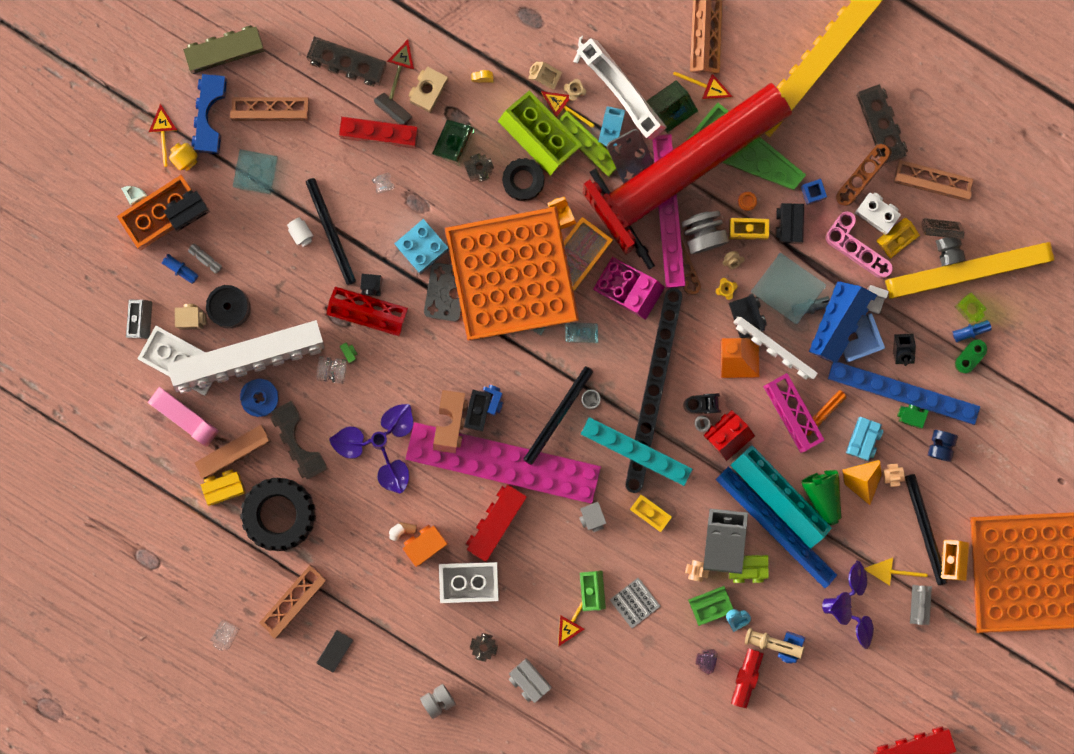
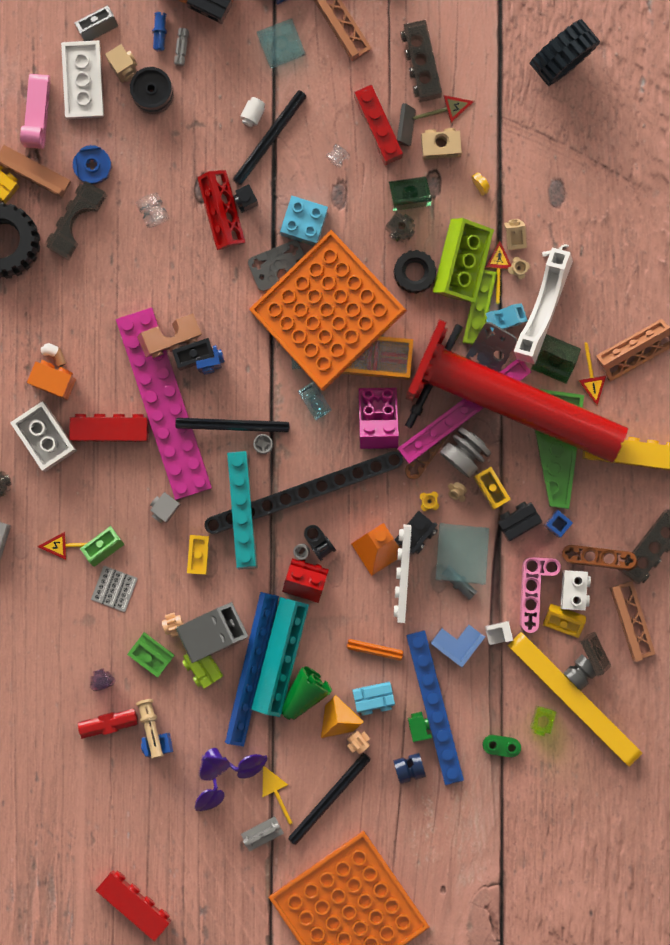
camera: 55 degrees right, 0 degrees up
(246, 356) = (117, 129): white brick -> none
(349, 352) = (176, 216): bright green plate -> none
(349, 444) = (103, 263): dark purple plant -> none
(565, 215) = (406, 322): light orange bracket -> none
(738, 619) = (153, 684): medium azure tile -> none
(747, 201) = (515, 473): orange plate -> none
(787, 416) = (351, 621): dark pink fence -> none
(840, 320) = (462, 614): blue wedge -> none
(904, 349) = (468, 687): black brick -> none
(955, 560) = (317, 839): light orange brick -> none
(971, 331) = (523, 733): blue axle -> none

